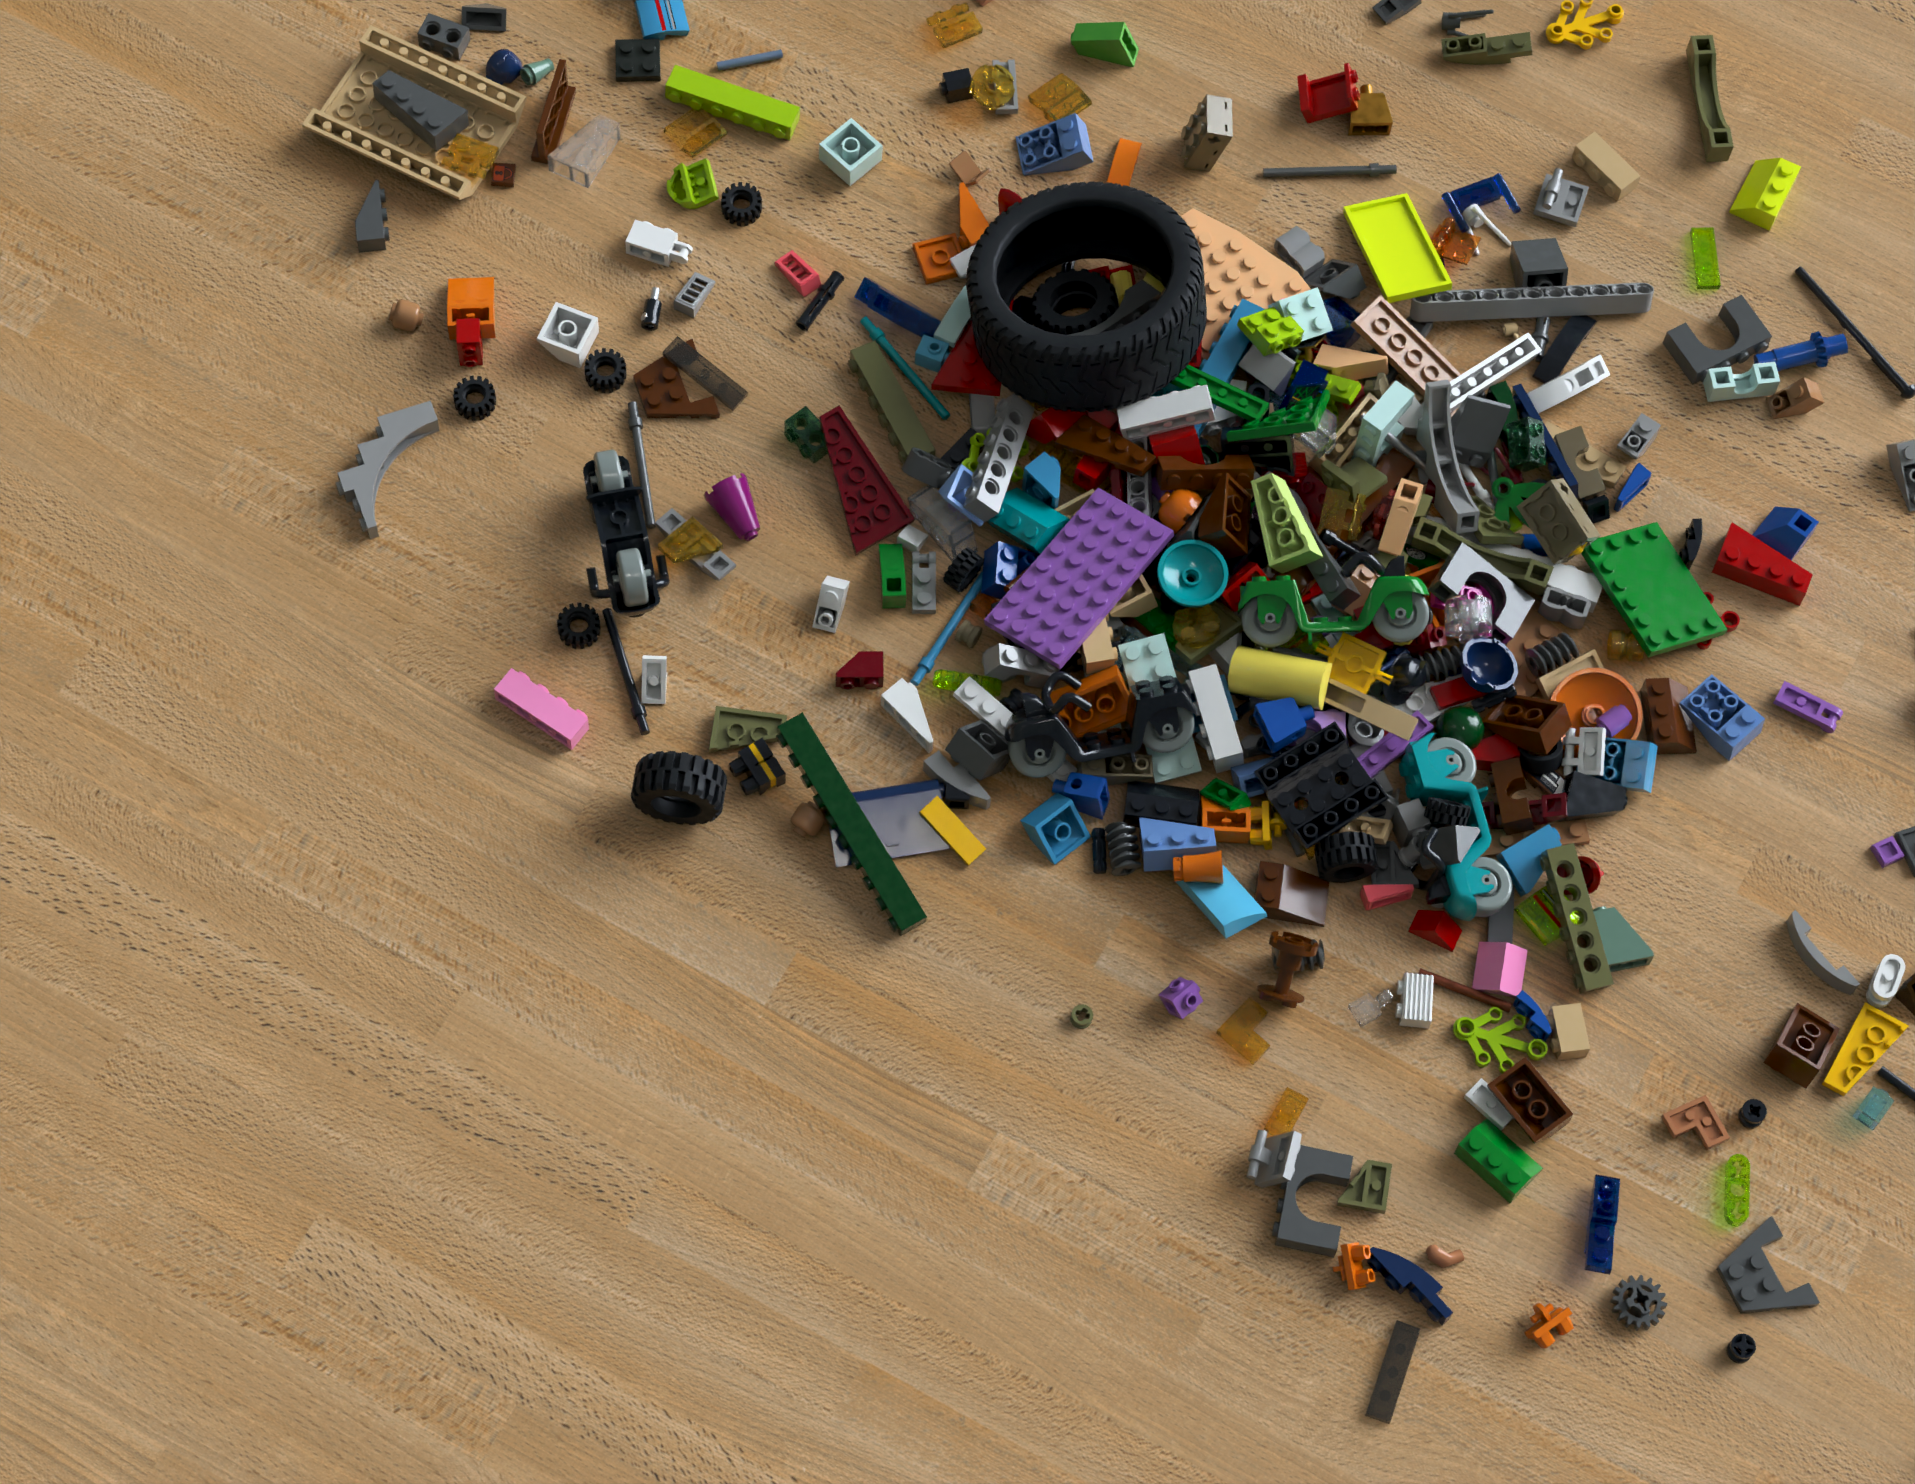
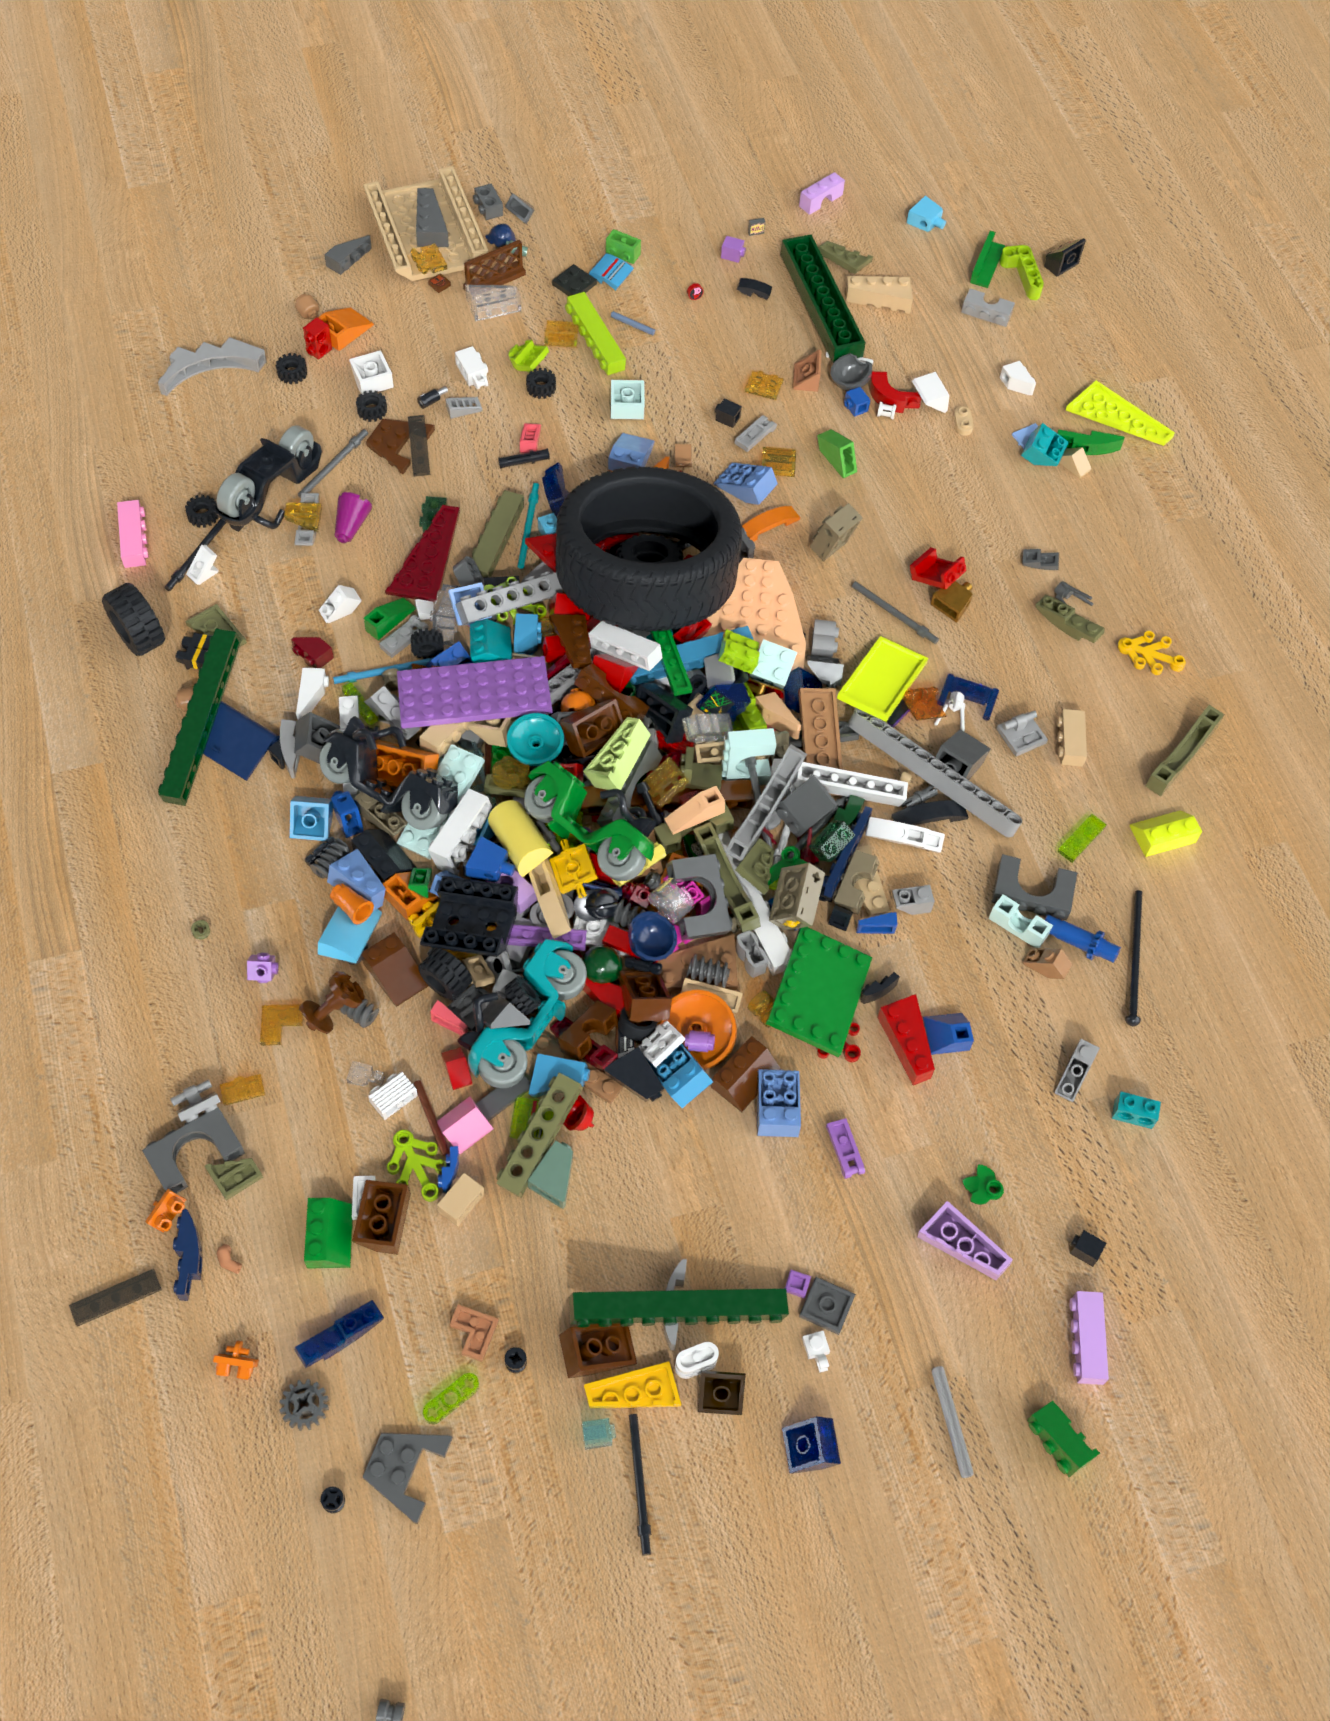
camera: 45 degrees right, 5 degrees down
(916, 209) = (630, 452): none -> medium blue slope
(952, 830) = (253, 769): yellow tile -> none
(983, 94) = (742, 432): clear yellow plate -> none
(1298, 419) = (688, 703): green tile -> none
(1833, 951) = (678, 1306): none -> dark green brick

